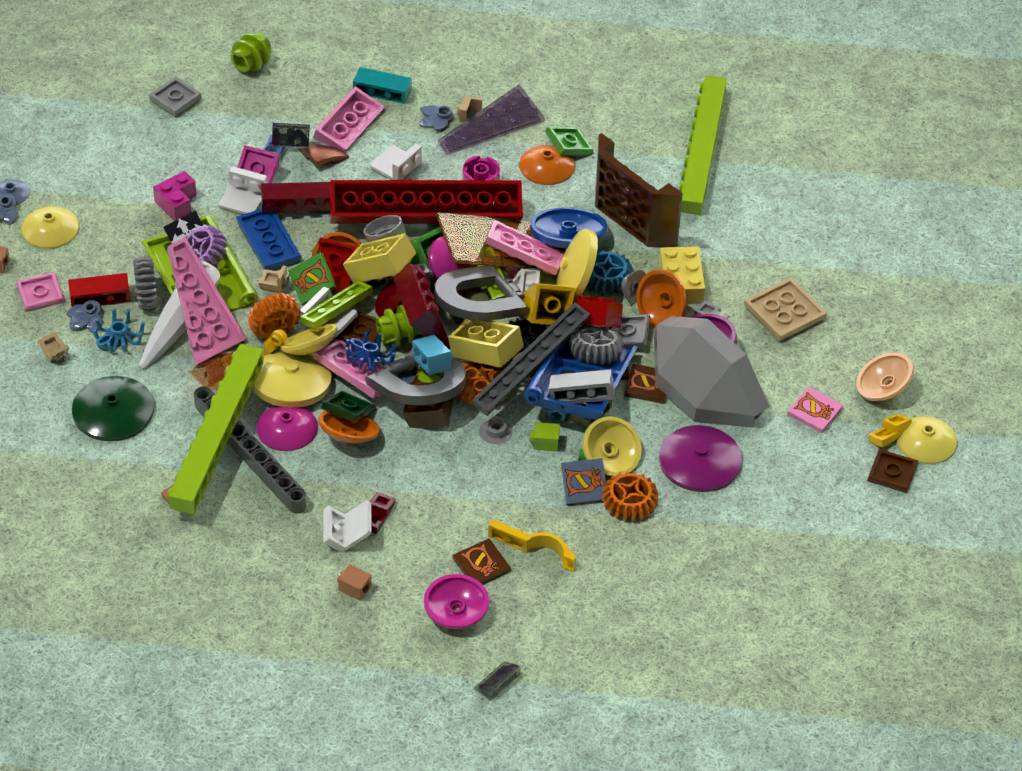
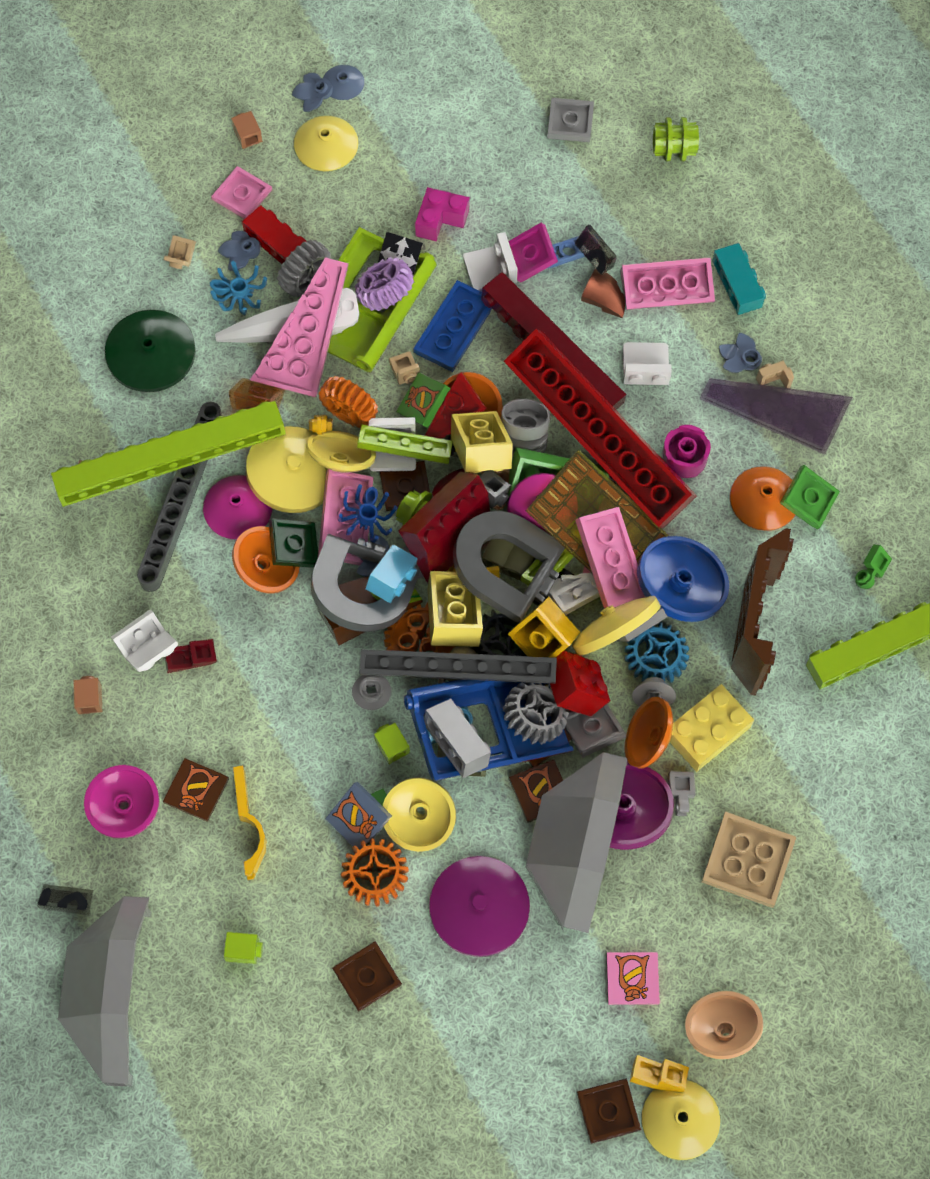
camera: 55 degrees right, 20 degrees up
(593, 679) = (99, 989): none -> light grey panel
(622, 595) = (242, 948): none -> lime brick
(642, 138) = (876, 563): none -> bright green plate
(698, 543) = (367, 976): none -> reddish brown tile

